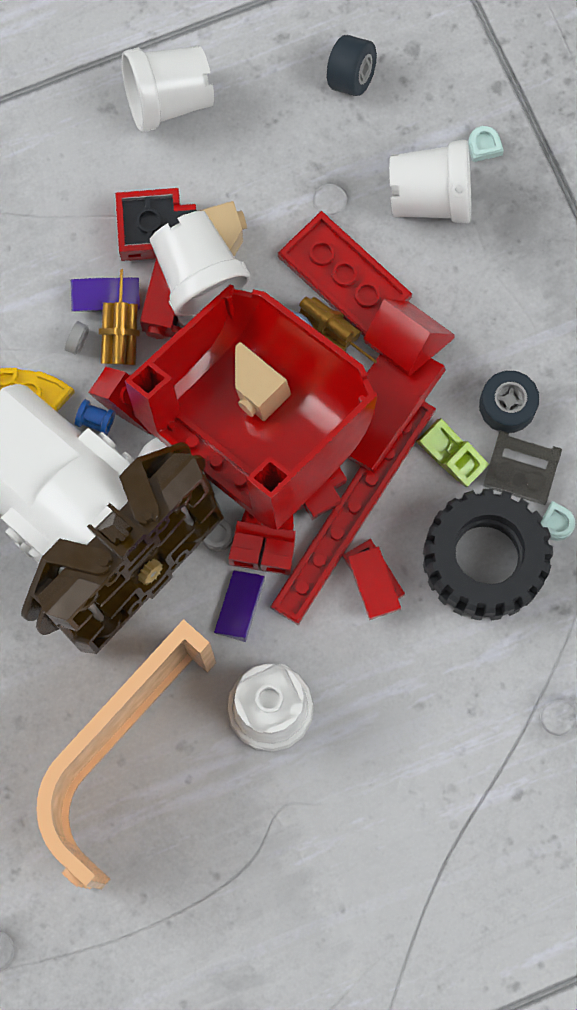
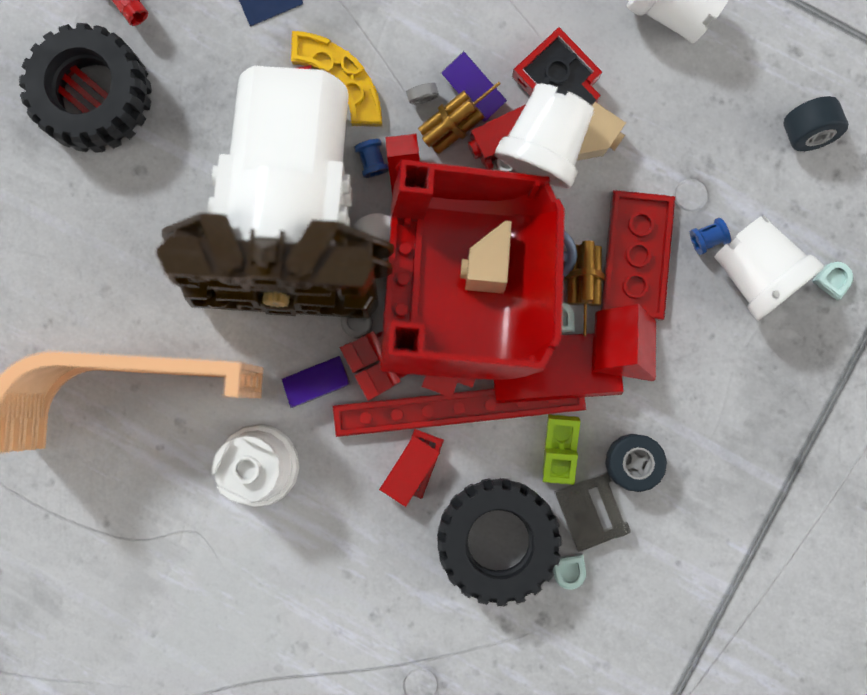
camera: 50 degrees right, 10 degrees up
(374, 208) = (710, 236): none -> blue bush

